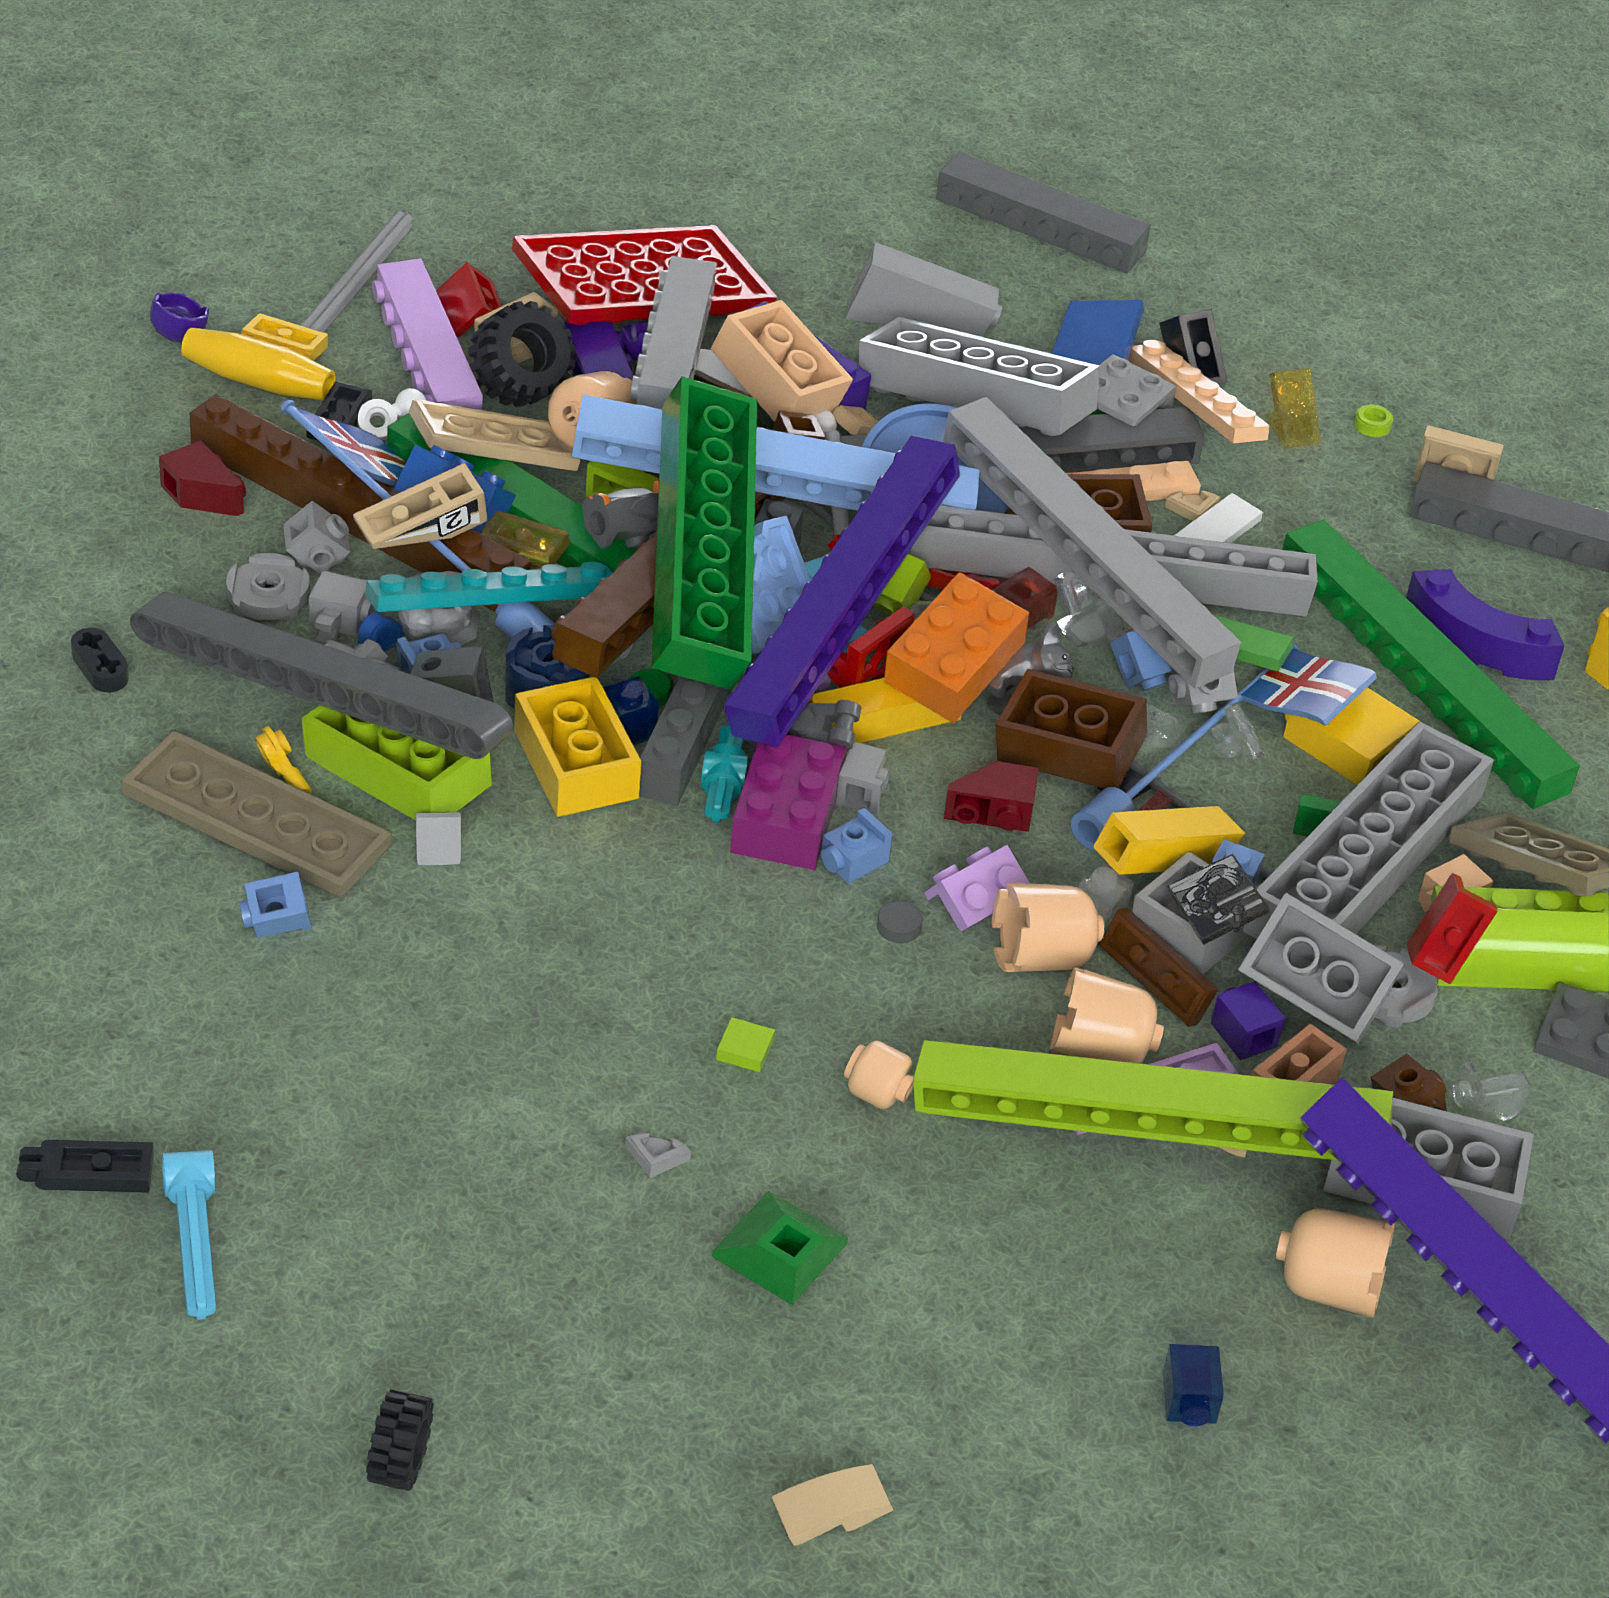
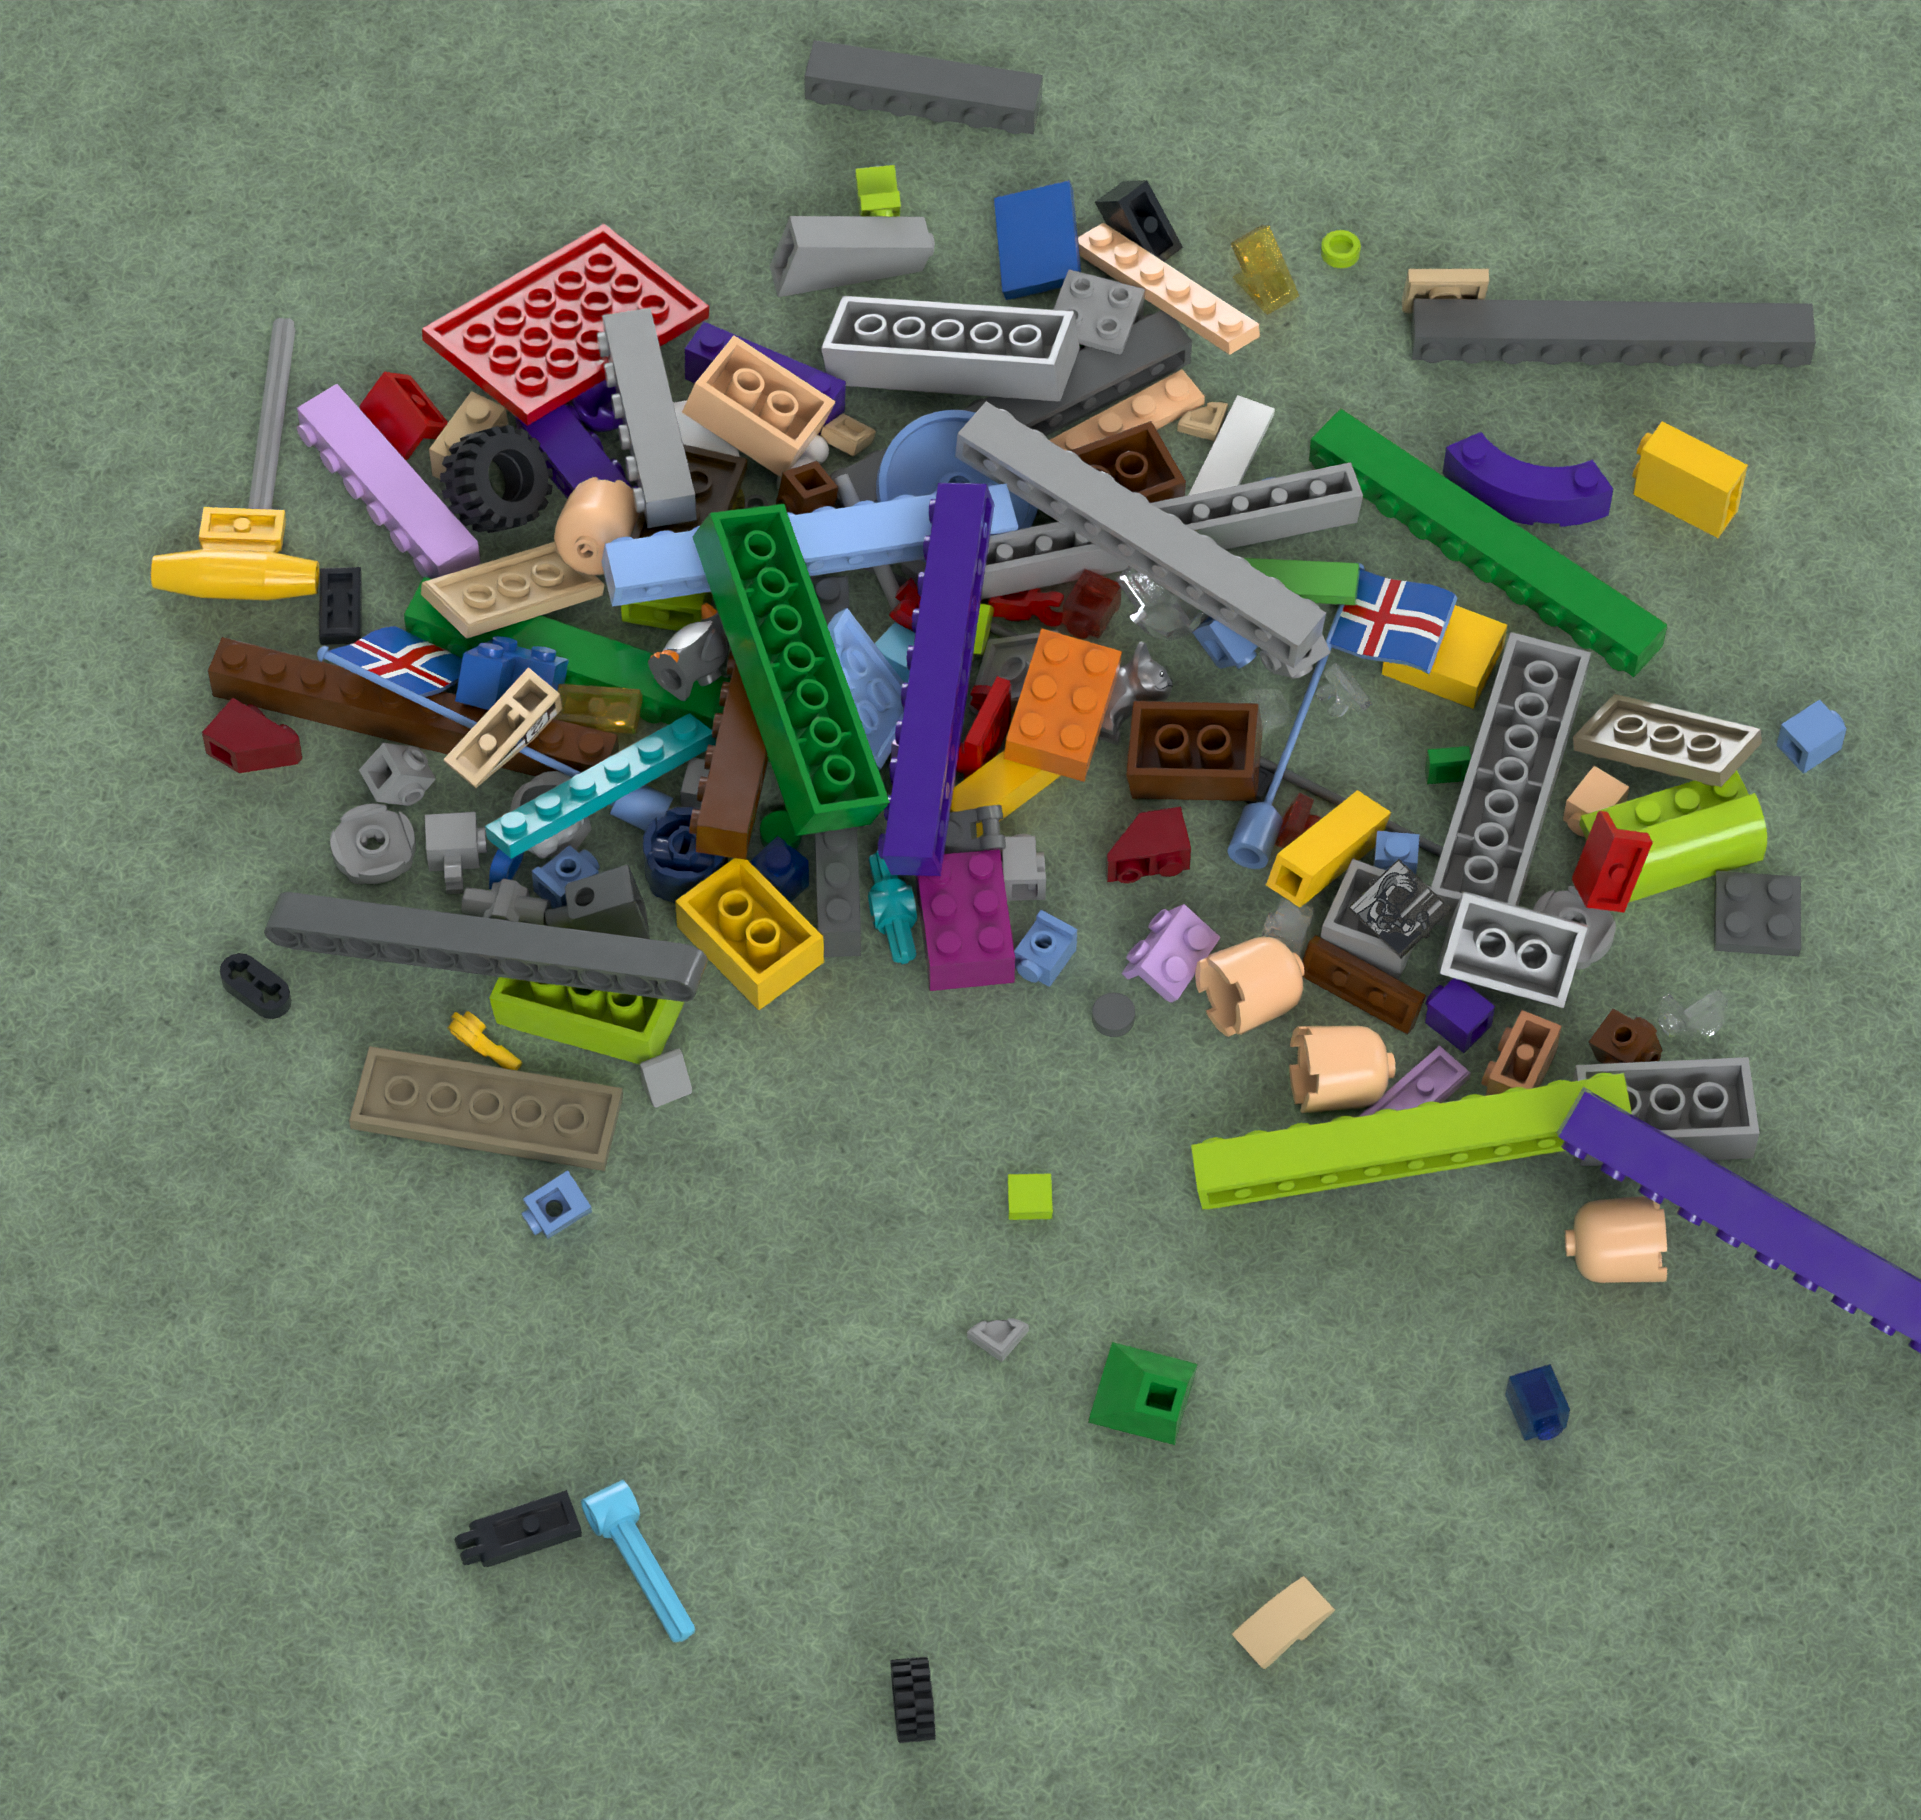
camera: 15 degrees left, 15 degrees up
(175, 314) = (125, 540): dark purple hair -> none
(388, 412) = (407, 576): white plate -> none
(879, 1074) = (1163, 1190): light nougat head -> none
(968, 258) = (877, 191): none -> lime brick

